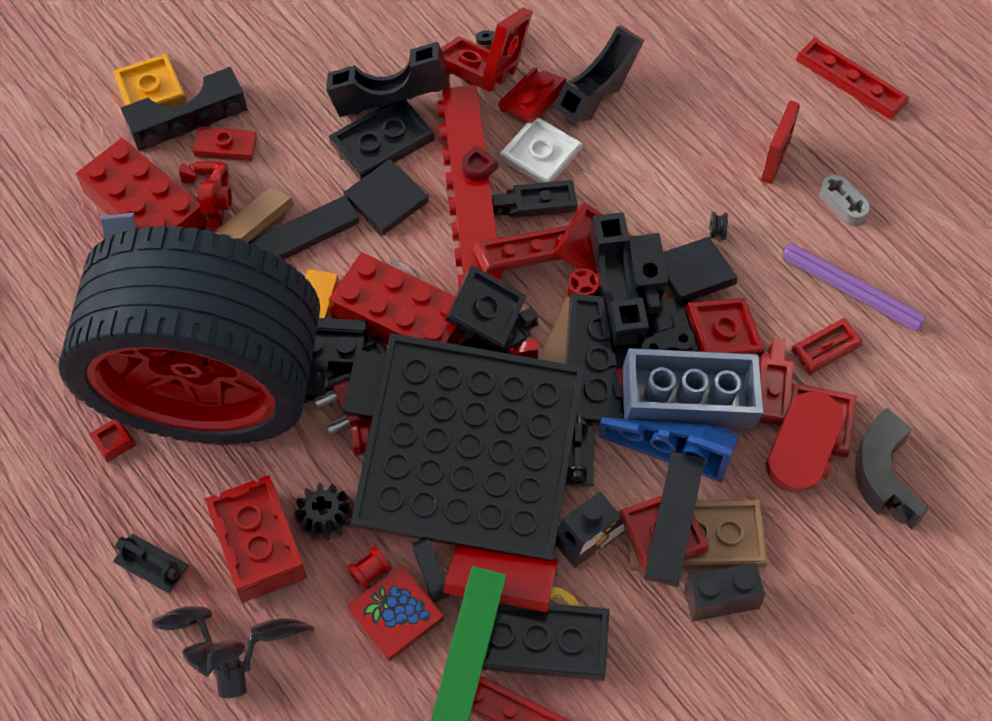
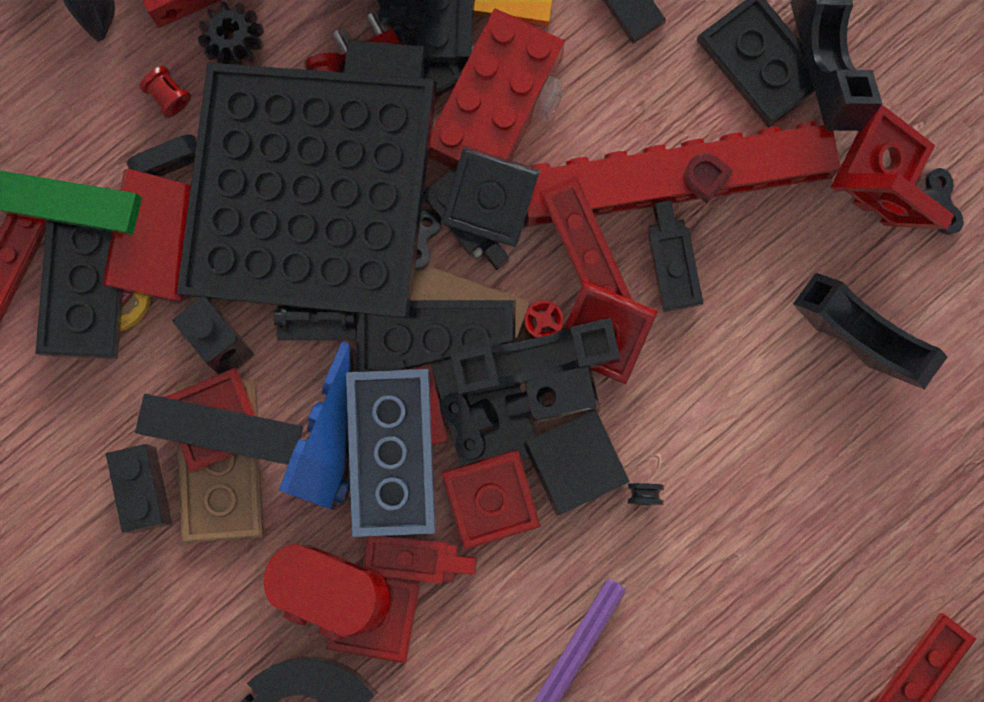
camera: 90 degrees right, 20 degrees up
(386, 197) = (670, 71): black tile -> none
(395, 613) = (118, 125): red tile -> none
(528, 349) = (446, 251): red tile -> none
(532, 95) = (842, 248): red plate -> none
(540, 151) = (755, 263): white tile -> none
(780, 142) = (774, 578): red tile -> none
(807, 358) = (497, 659): red tile -> none
(842, 201) = (708, 673): light grey beam -> none

